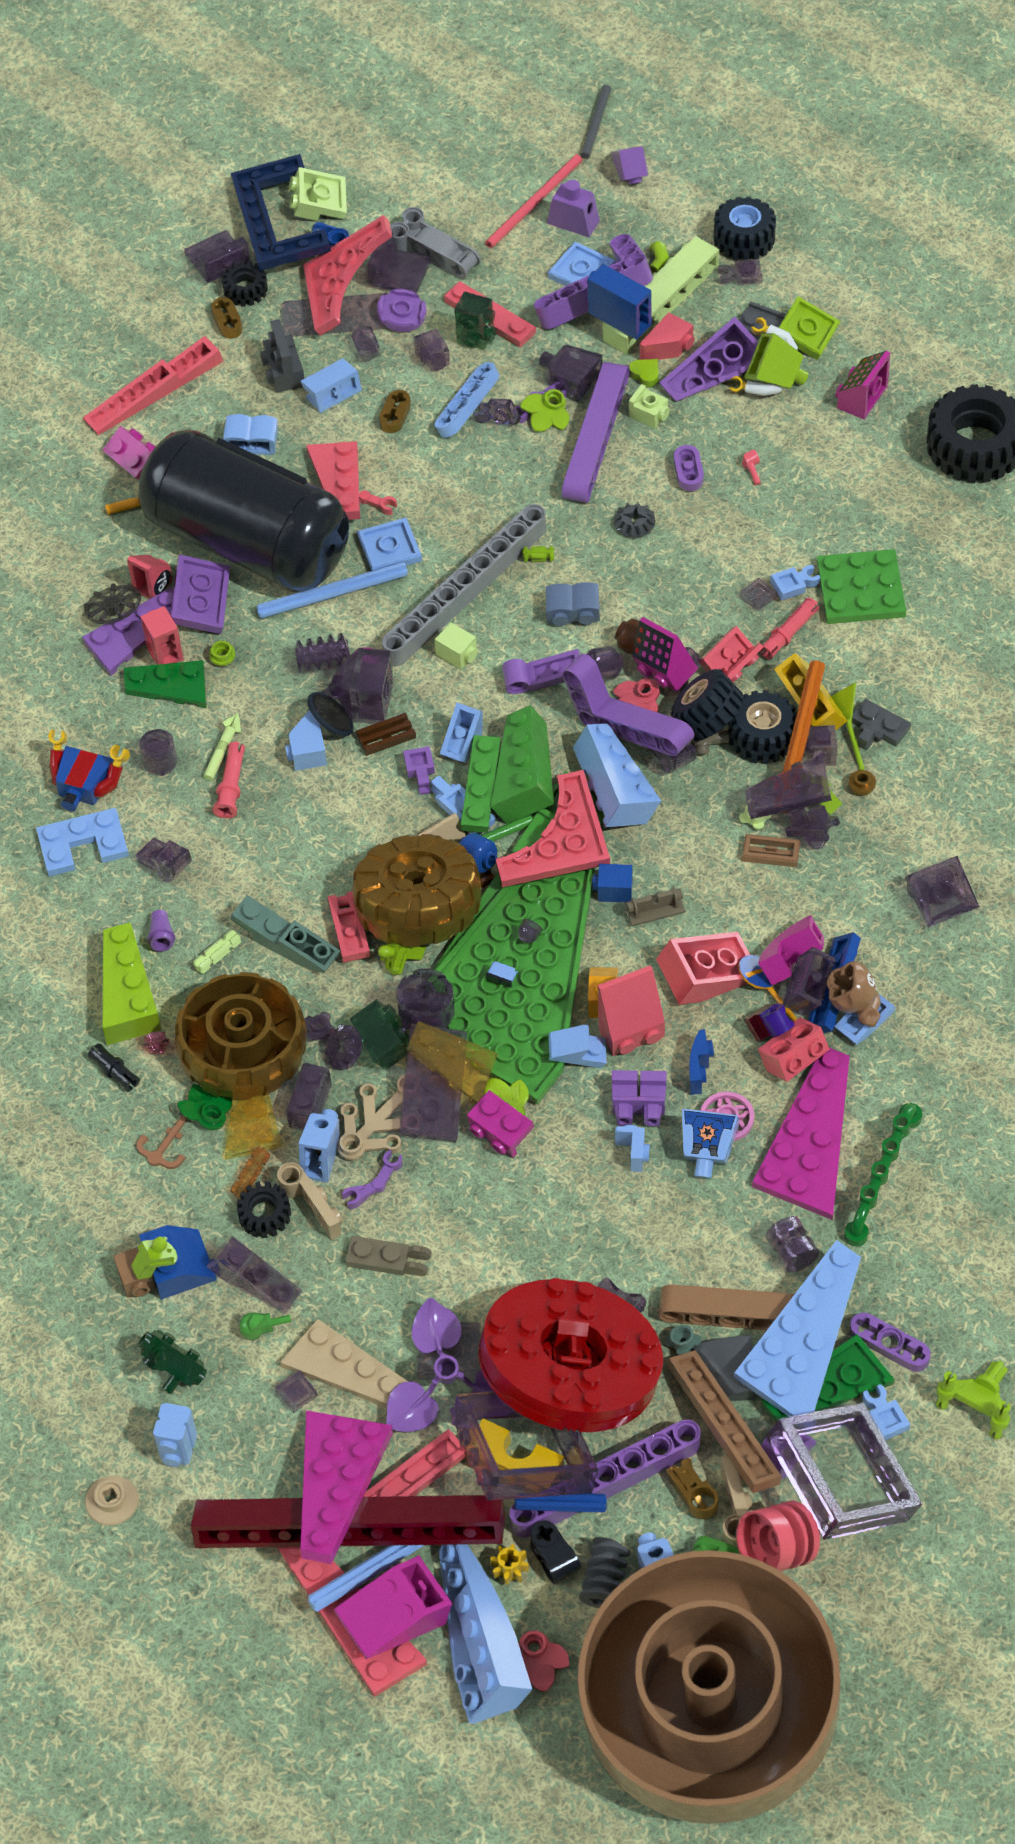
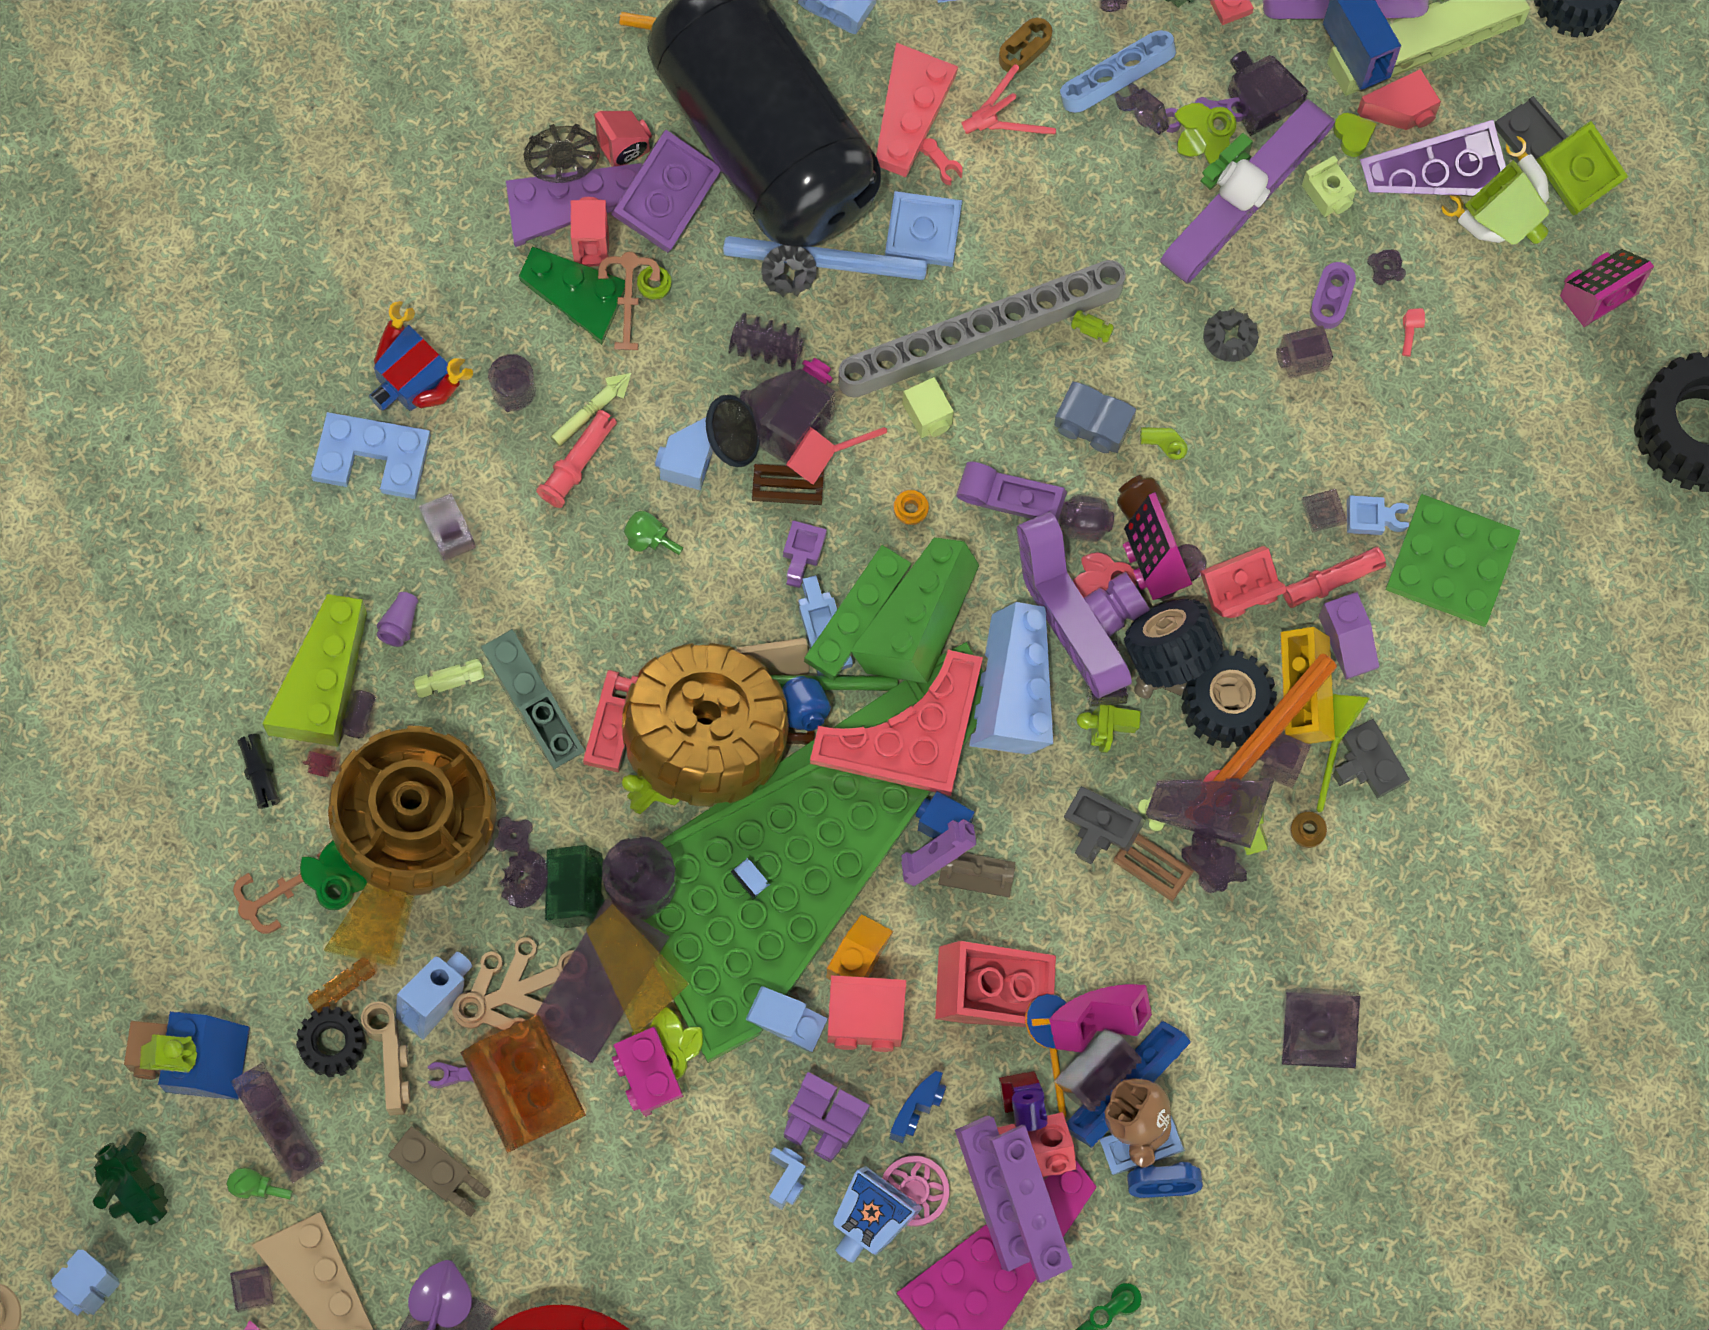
camera: 20 degrees right, 15 degrees up
(167, 1007) = (359, 713): none -> pin
(199, 644) = (629, 261): none -> nougat piece
(301, 604) = (796, 258): none -> dark grey gear
(303, 803) = (647, 531): none -> bright green piece
(308, 1095) = (452, 924): clear purple brick -> none
(394, 462) = (987, 117): none -> coral plant
(396, 699) = (816, 451): none -> coral piece
(416, 1169) = (523, 1083): none -> clear orange slope
(461, 731) = (874, 528): light blue slope -> none
(482, 705) = (911, 497): none -> light orange plate
(529, 931) = (808, 840): hinge -> none
(574, 416) = (1236, 151): none -> bright green plate
(593, 422) = (1243, 185): none -> white head
(622, 899) = (938, 852): none -> medium lavender piece
(629, 598) = (1166, 439): none -> lime arm
(657, 695) = (1117, 603): none -> medium lavender wheel
(689, 778) = (1106, 720): none -> lime piece
(690, 506) = (1304, 352): none -> brick
(713, 437) = (1386, 257): none -> plate
(722, 838) = (1101, 824): none -> dark grey hinge
(744, 271) = (1549, 50): clear purple plate -> none
(788, 1079) = (1014, 1198): none -> medium lavender fence
(816, 645) = (1350, 635): none -> medium lavender slope
(893, 1030) = (1165, 1181): none -> blue plate

